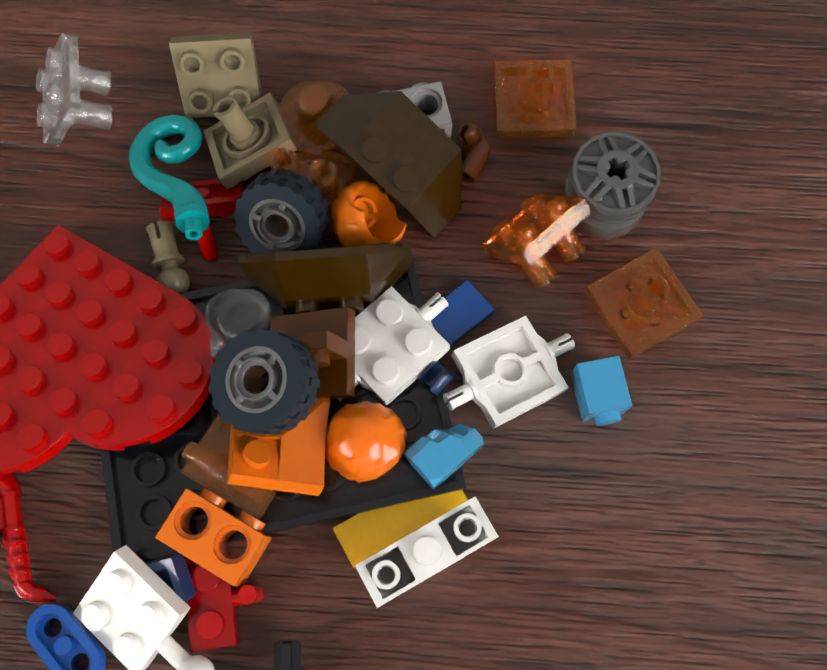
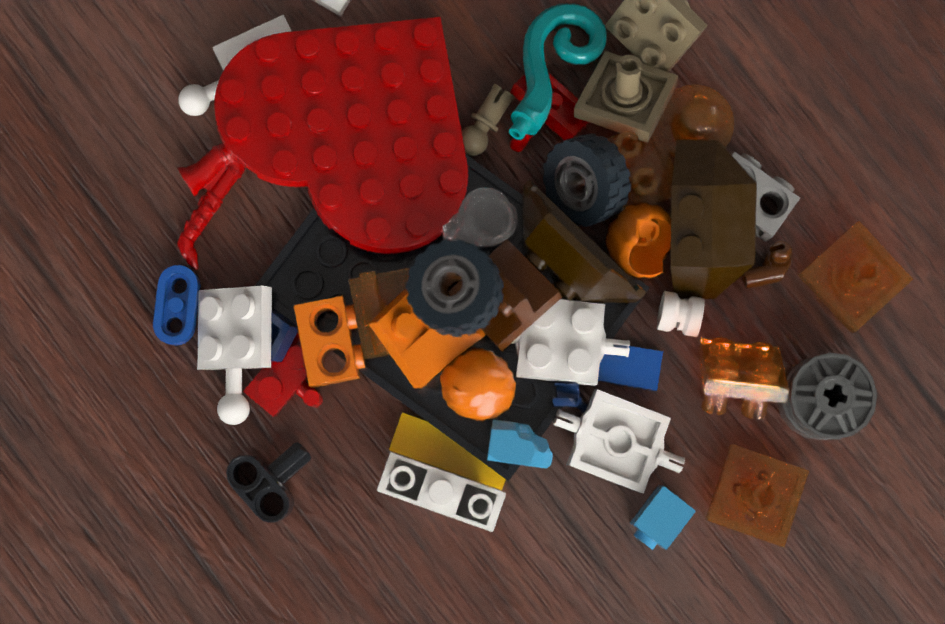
camera: 45 degrees right, 10 degrees up
(450, 241) = (680, 314): none -> white wheel

